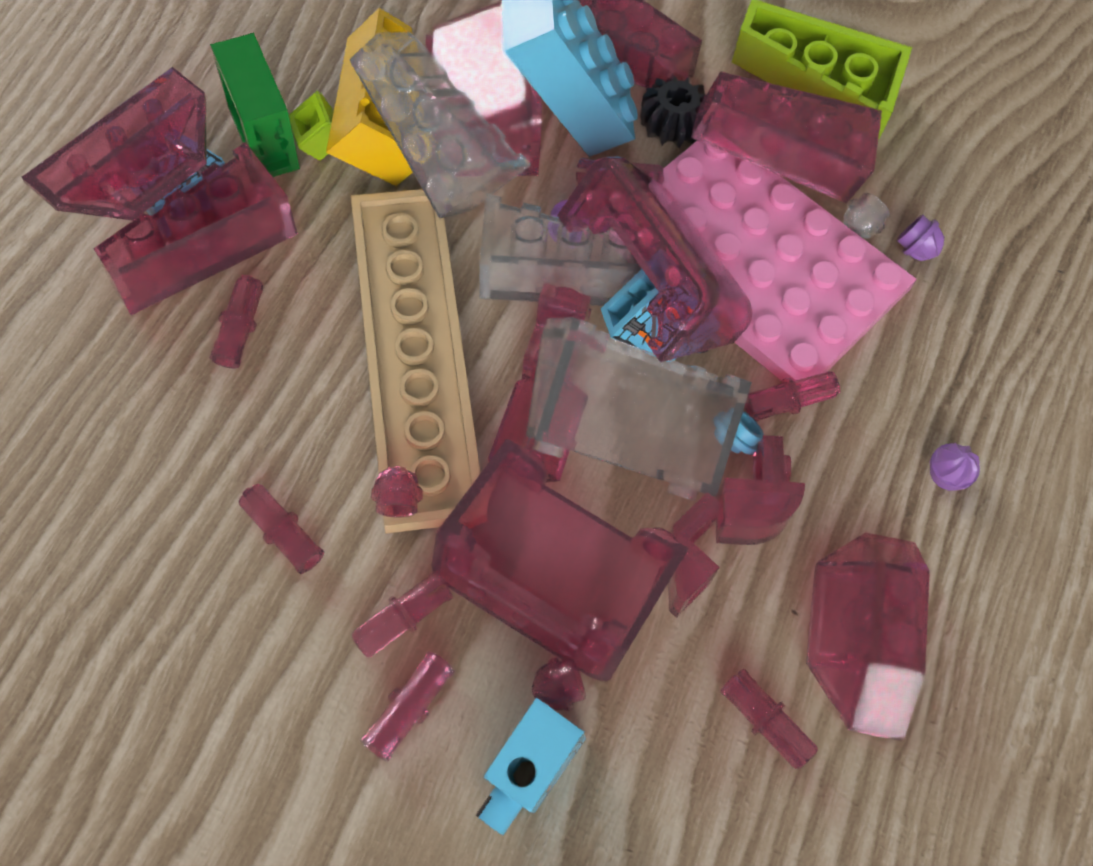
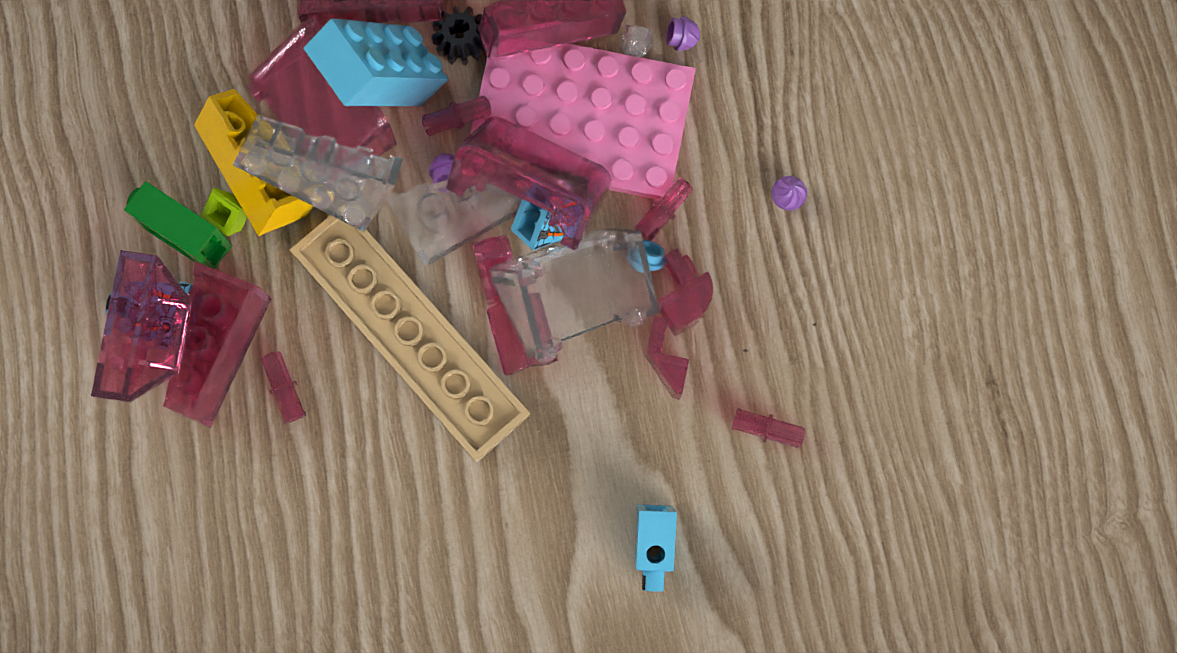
camera: 30 degrees left, 15 degrees up
(280, 528) = (412, 501): clear pink axle -> none
(396, 493) = (471, 437): clear pink plate -> none
(401, 615) = (522, 506): clear pink axle -> none
(407, 706) = (563, 555): clear pink pin -> none
(552, 564) = (595, 419): clear pink windscreen -> none
(559, 684) = (639, 487): clear pink plate -> none
(870, 632) = (794, 334): clear pink wedge -> none

